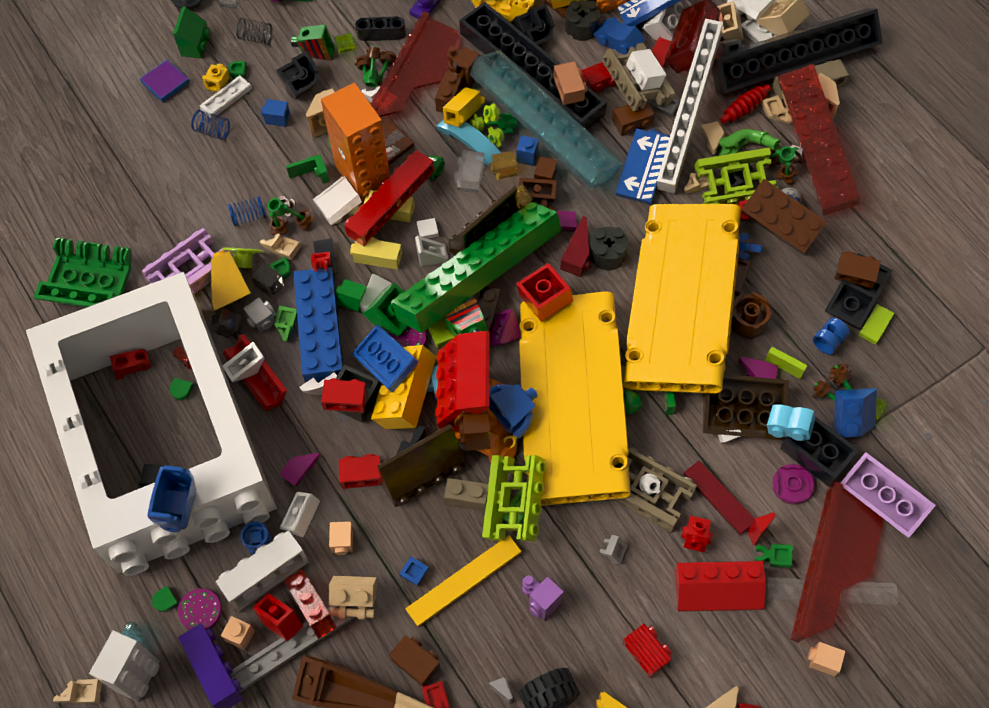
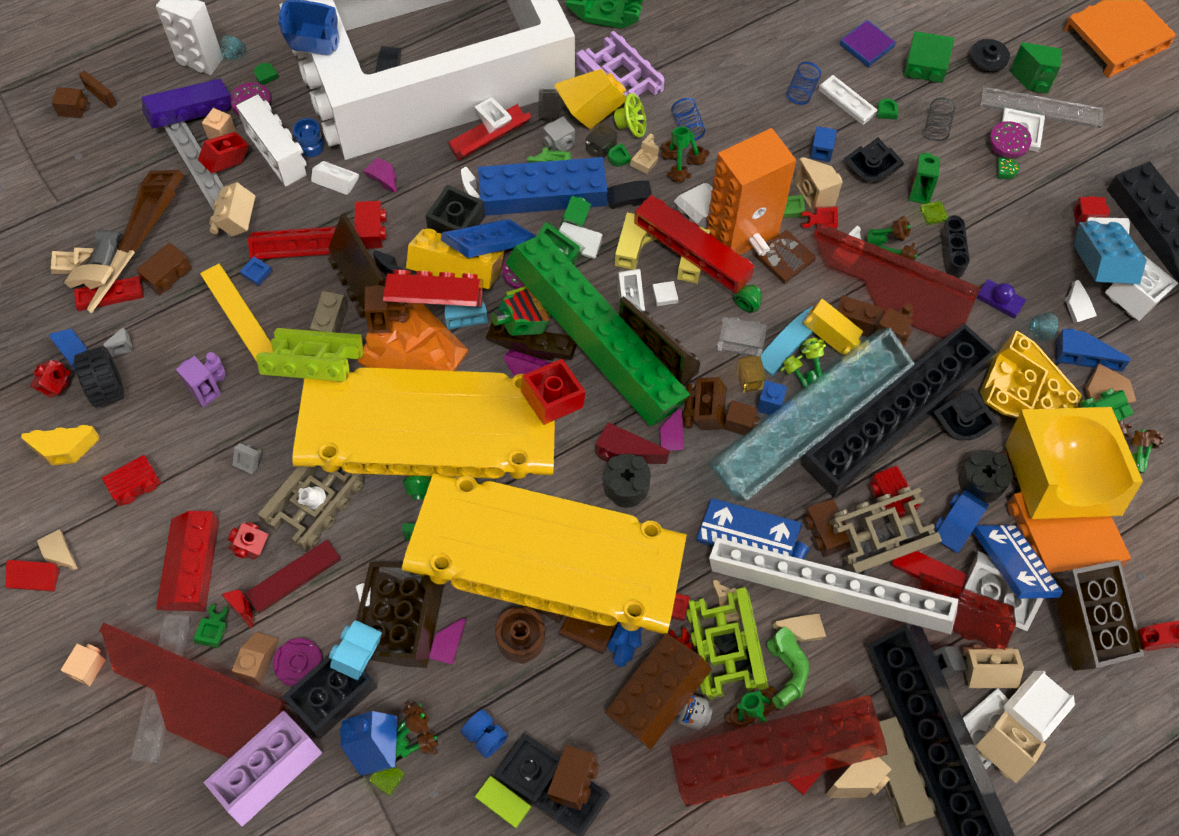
camera: 90 degrees right, 0 degrees up
(130, 362) = (510, 26): red leg -> none
(216, 77) = (872, 87): yellow brick -> none
(310, 604) = (247, 172): clear red brick -> none
(320, 260) = (616, 180): red plate -> none
(341, 537) = (300, 208): light nougat brick -> none
(344, 395) = (441, 195): red brick -> none
(382, 539) = (290, 242): none -> red fence
(512, 408) = (409, 350): blue torso -> none
(523, 196) = (690, 377): clear yellow brick -> none
(569, 83) = (861, 438): nougat brick -> none
(646, 69) = (885, 532): white brick -> none
(745, 104) = (848, 668): red piece -> none
(786, 362) = (453, 673): lime tile -> none
(797, 514) = (255, 658): none -> medium nougat slope

